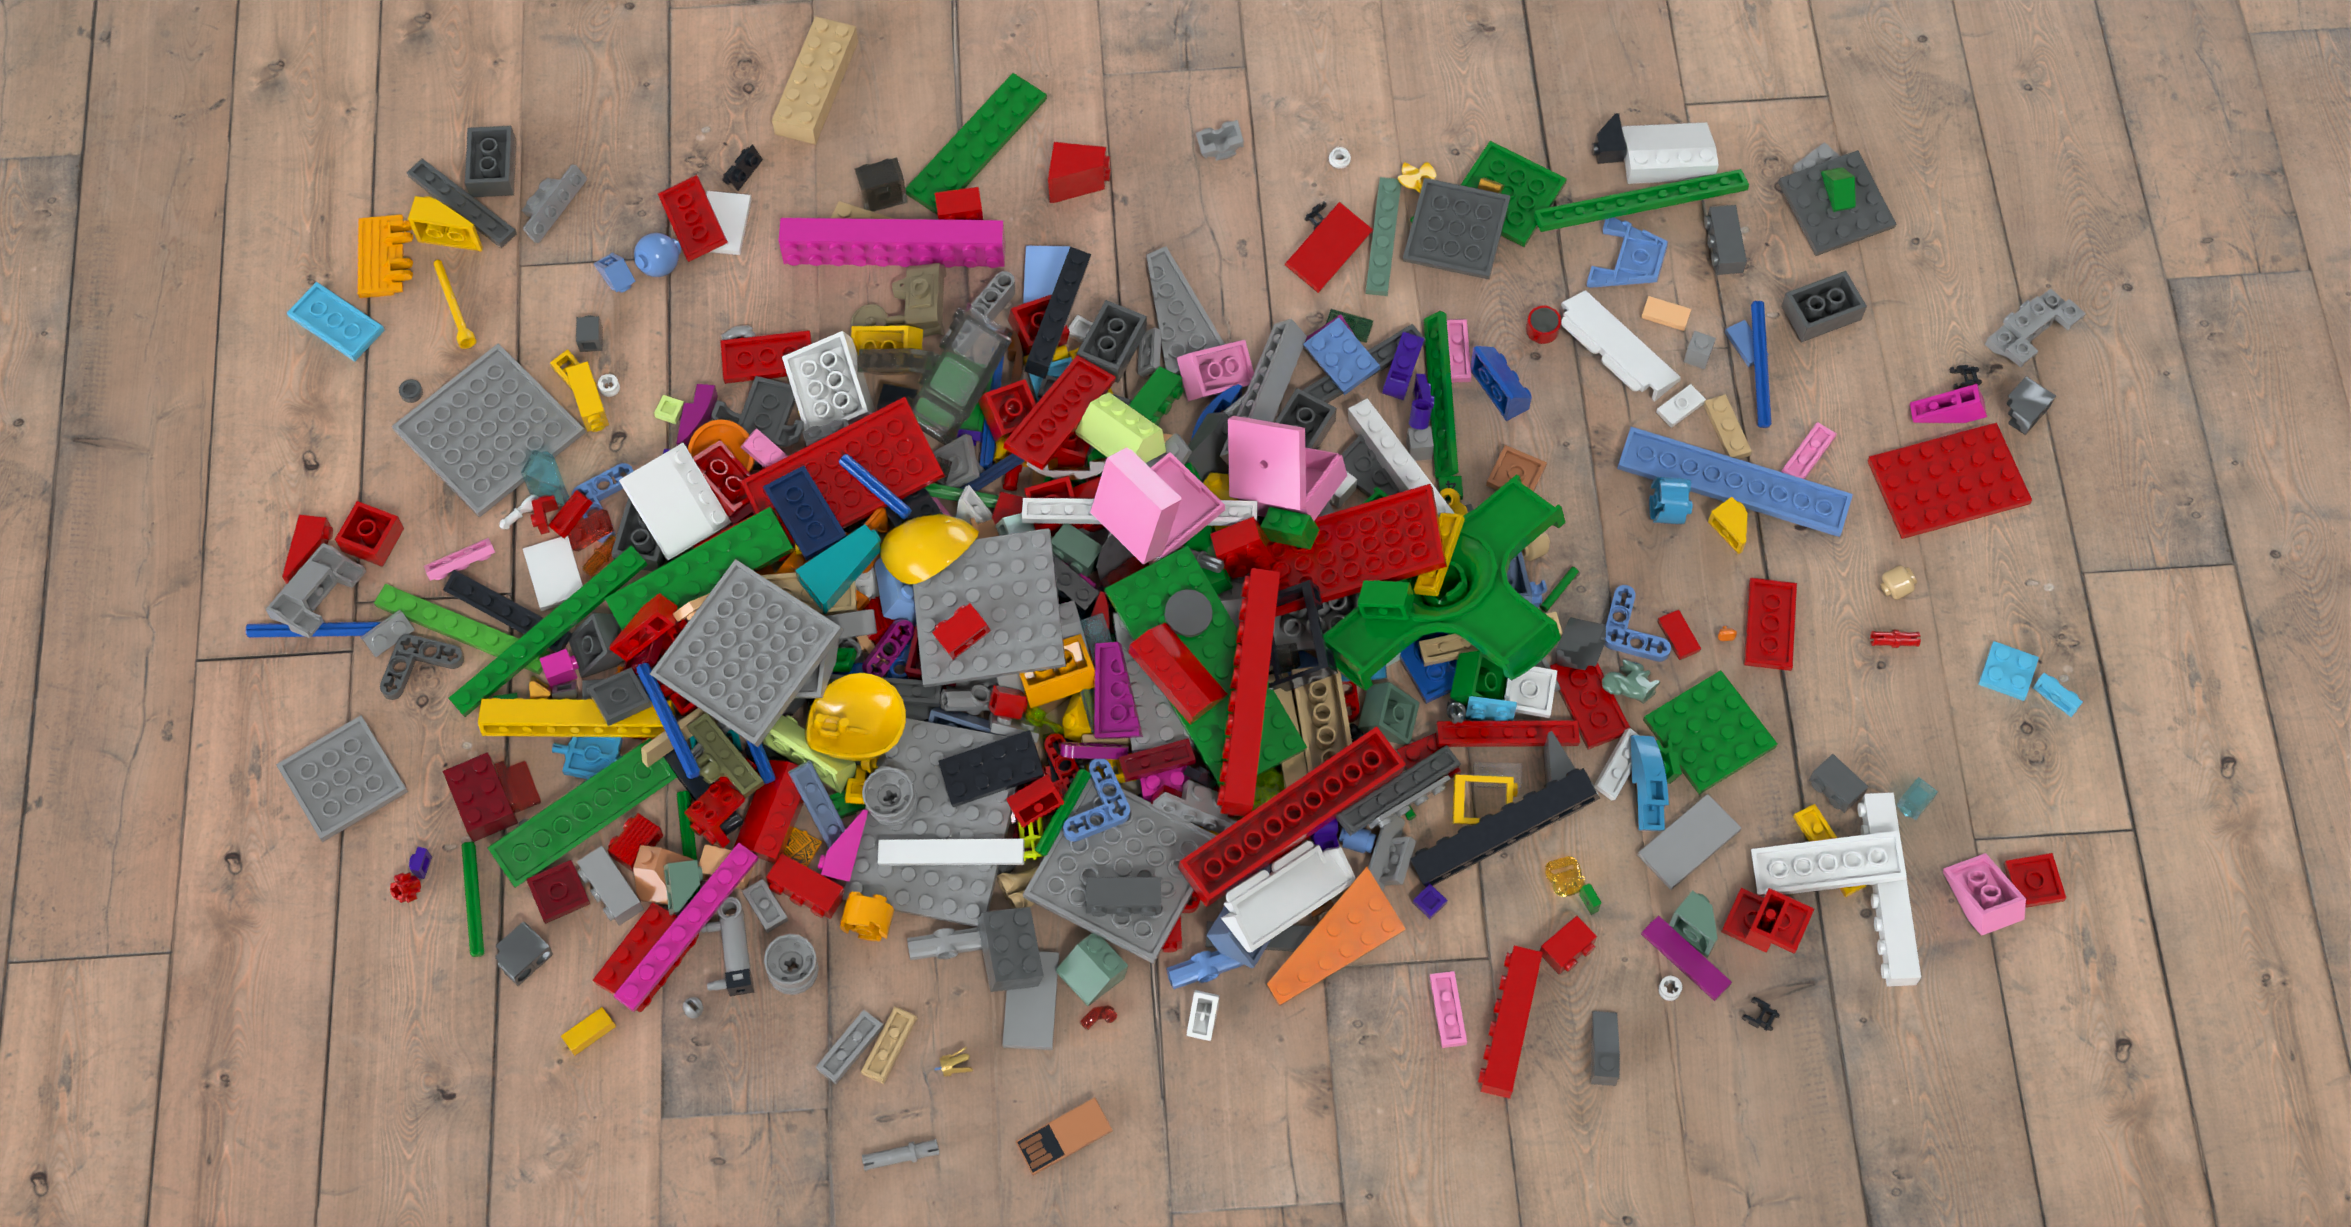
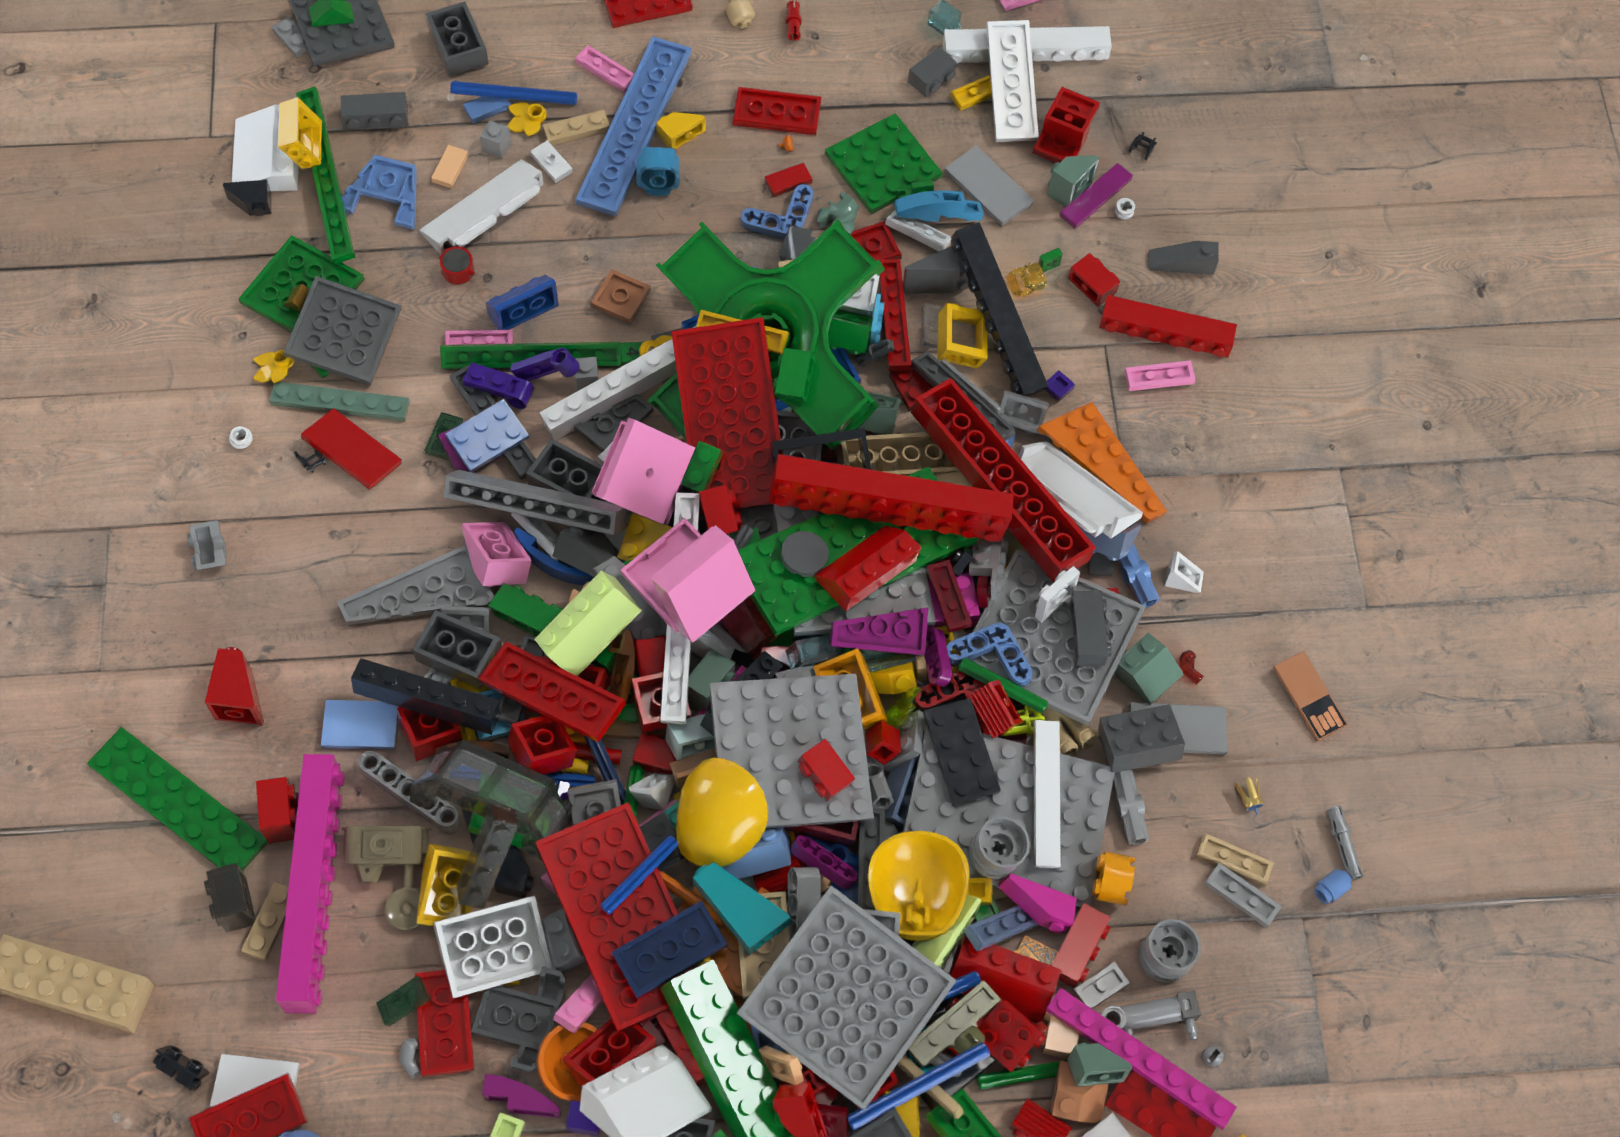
camera: 95 degrees left, 0 degrees up
(785, 322) = (403, 1001): none -> clear green plate
(854, 1136) = (1333, 886): none -> medium blue brick
(1156, 861) = (1057, 594): none -> white plate
(1679, 182) = (294, 117): none -> yellow window
(1730, 379) = (525, 119): none -> yellow plate

